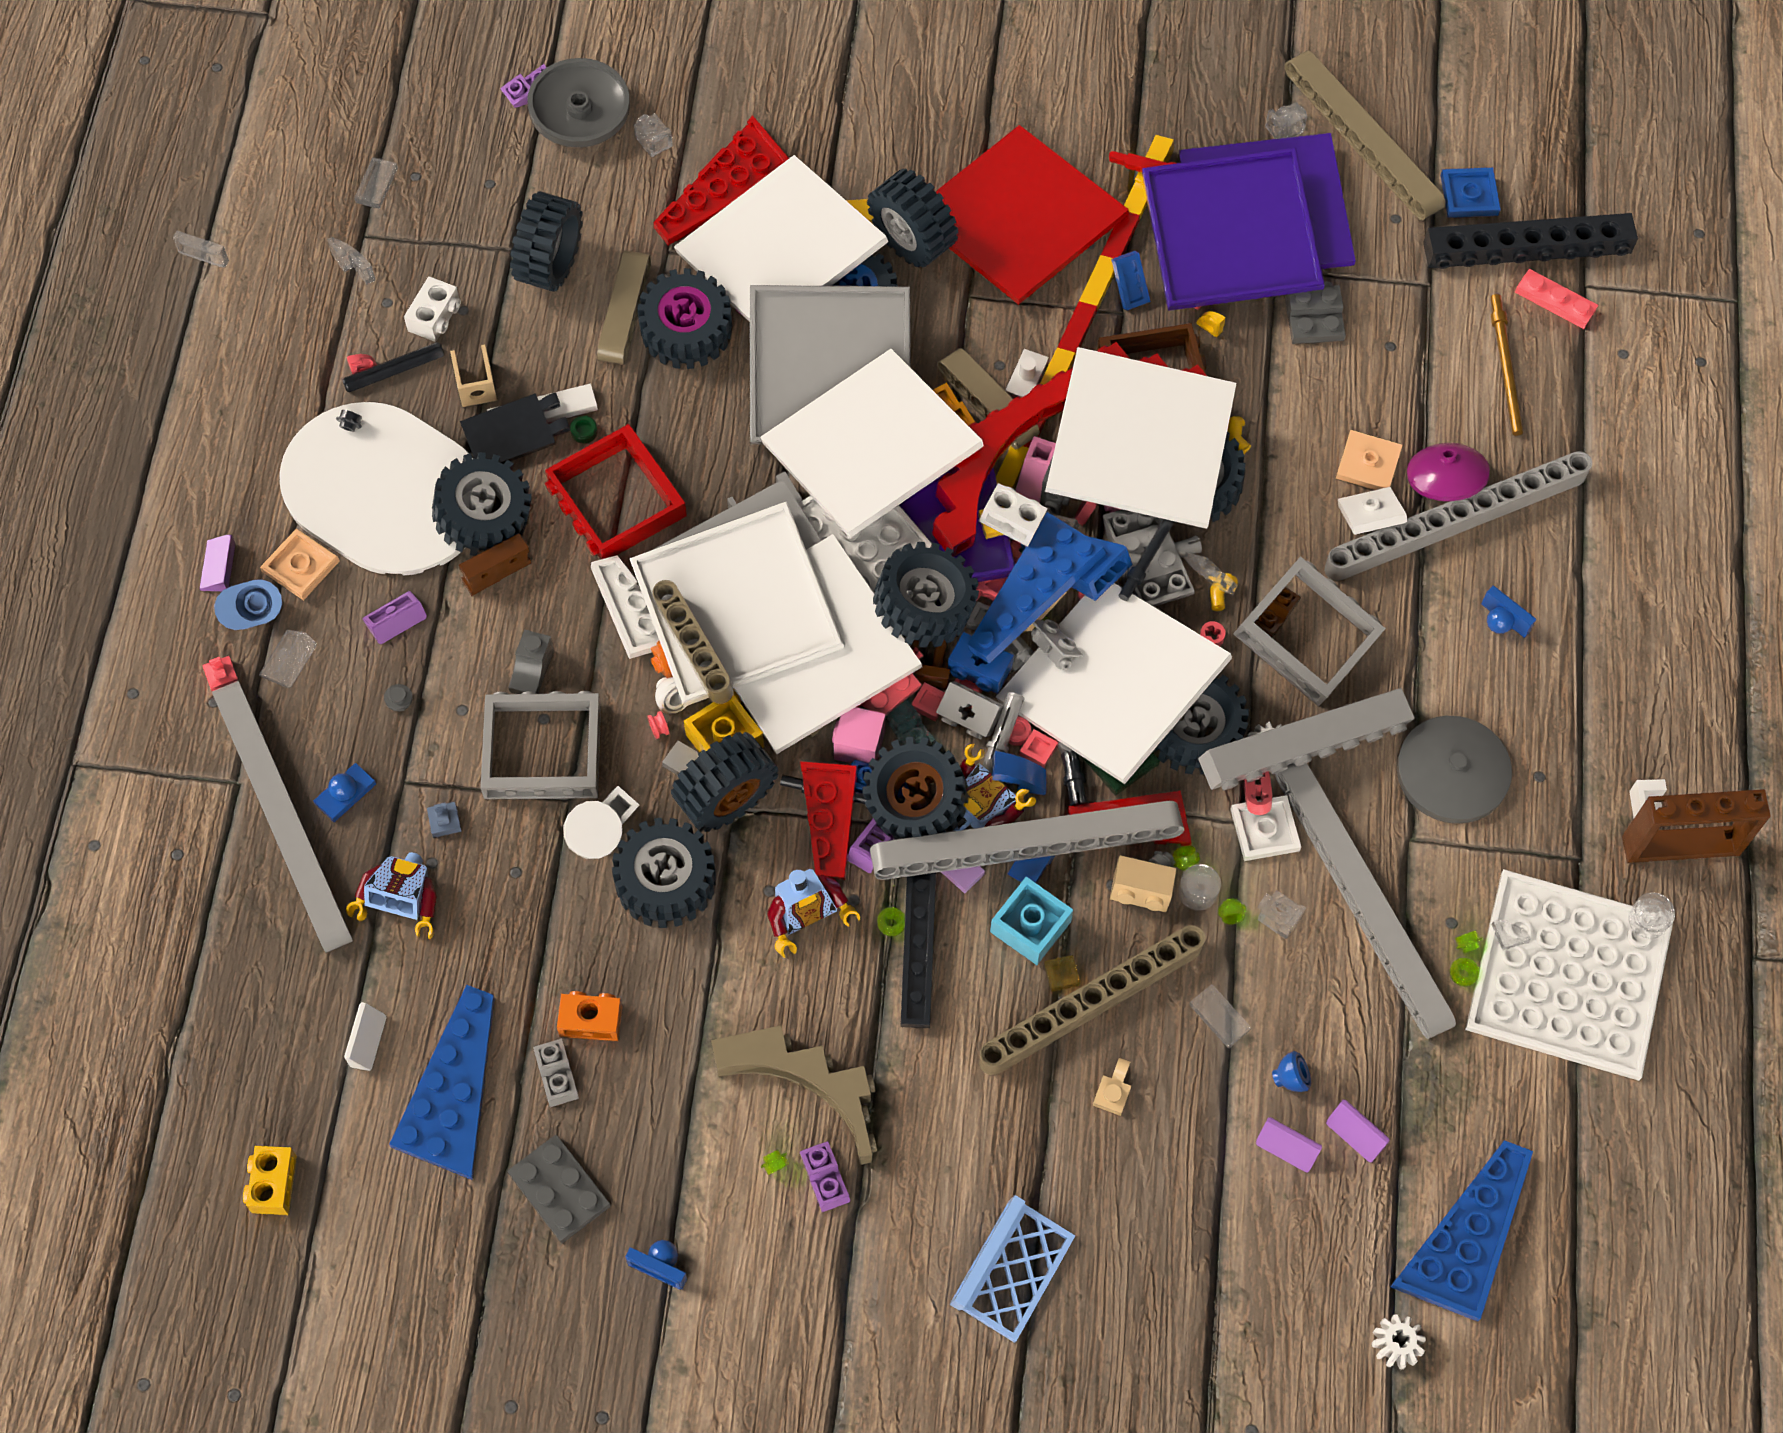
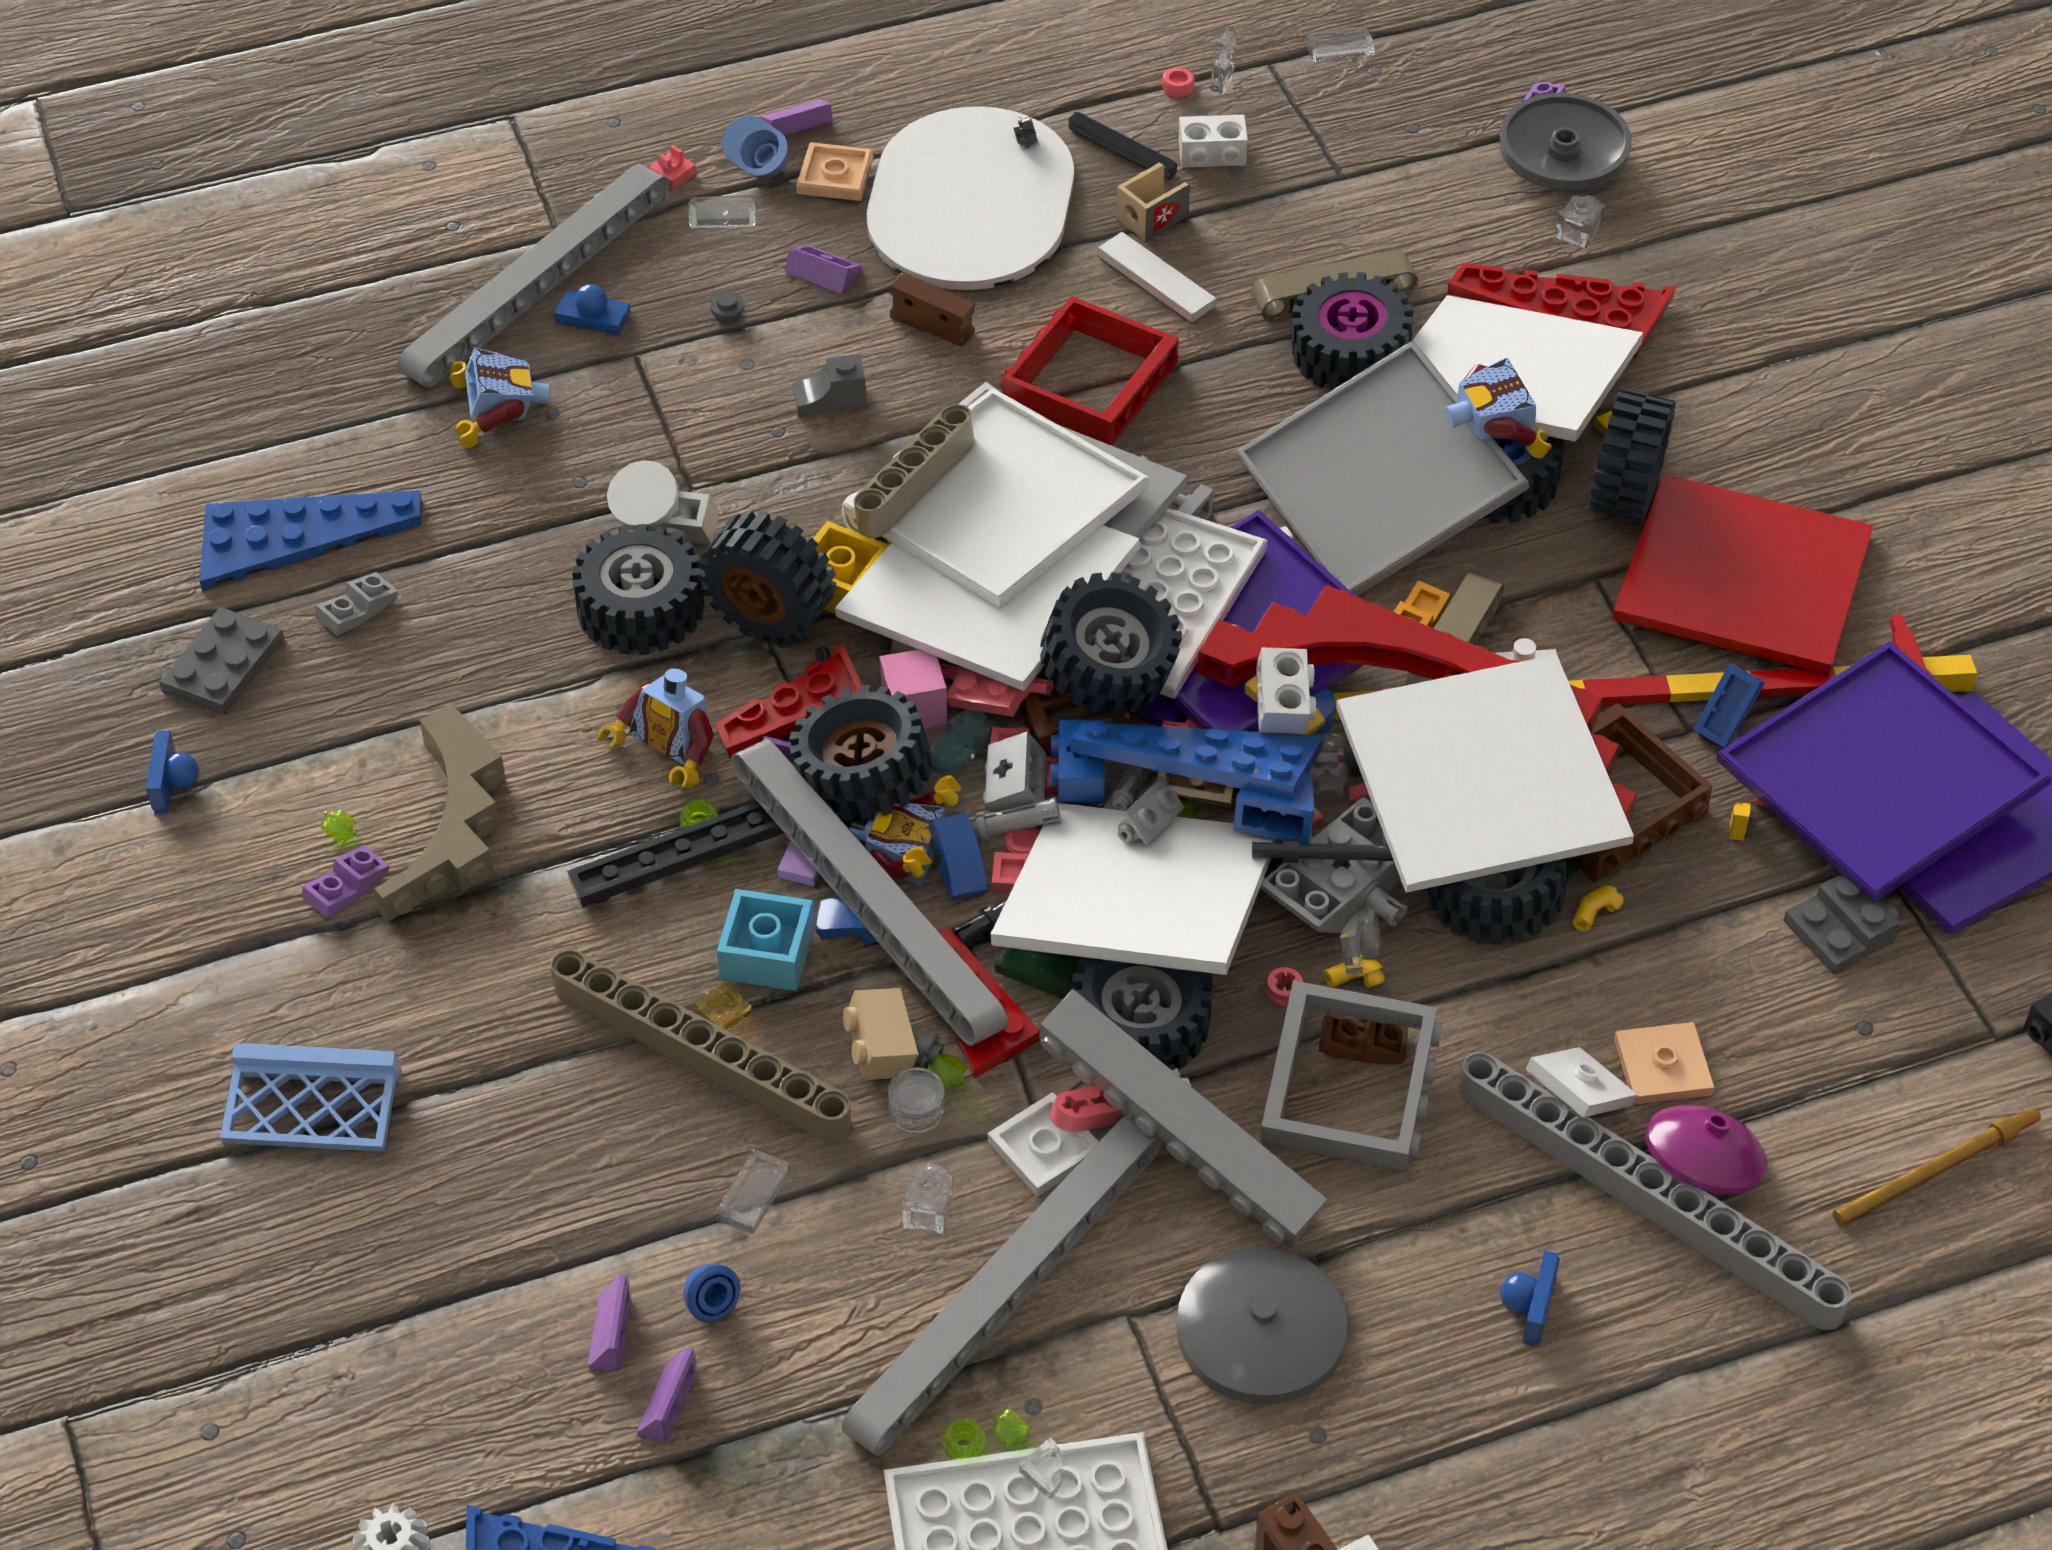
camera: 65 degrees right, 15 degrees down
(278, 1180) = (121, 430): yellow brick -> none
(348, 301) = (1178, 82): none -> coral tile
(360, 362) = (1105, 114): coral tile -> none
(365, 1037) = (317, 435): white slope -> none
(444, 819) = (606, 398): sand blue tile -> none
(477, 525) = (1016, 248): black wheel -> none
(514, 428) = (1108, 259): black tile -> none
(541, 786) = (751, 478): light grey window -> none
(546, 241) = (1326, 185): black wheel -> none
(583, 429) = (1158, 317): dark green tile -> none
(602, 1027) = (434, 600): orange brick -> none
(658, 725) = (820, 514): coral bush -> none
(843, 267) = (1498, 407): none -> torso
(871, 442) = (1293, 533): white tile -> none
(1112, 1091) = (591, 1115): tan plate -> none
(1232, 911) = (902, 1147): clear neon green plate -> none

